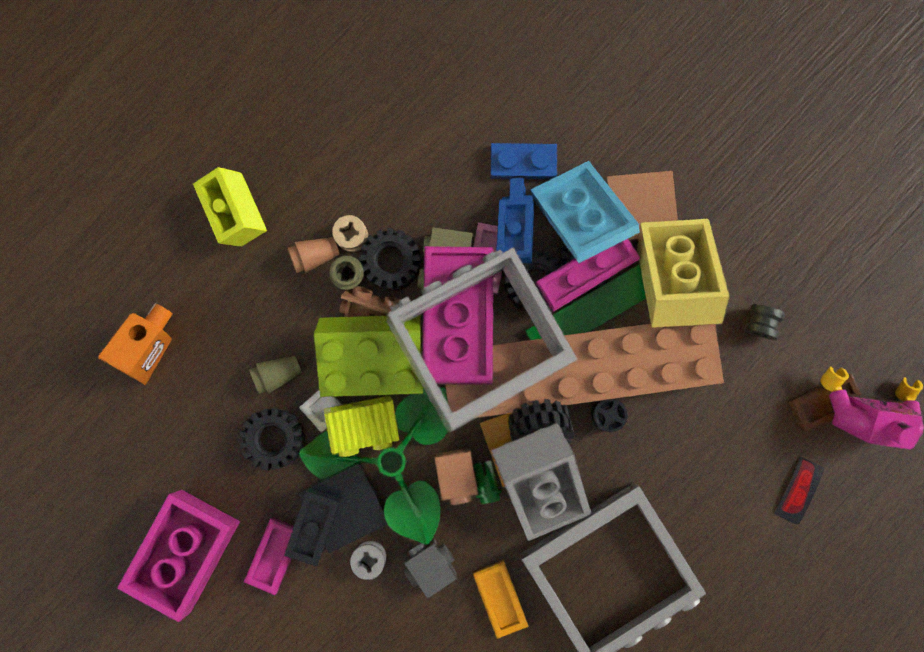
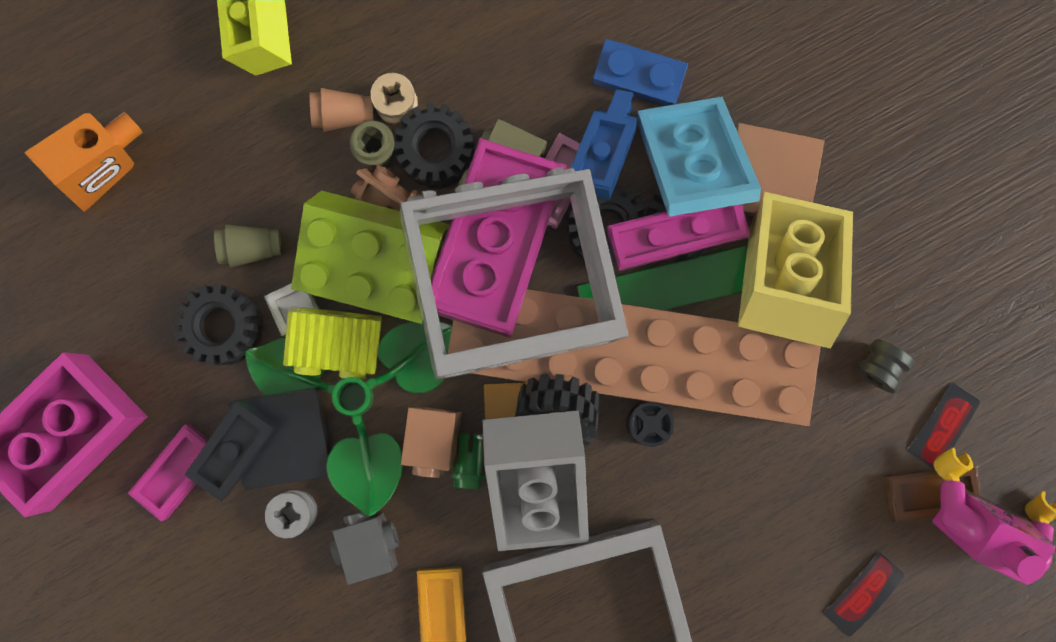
camera: 20 degrees right, 0 degrees up
(820, 350) = (944, 425): none -> sticker

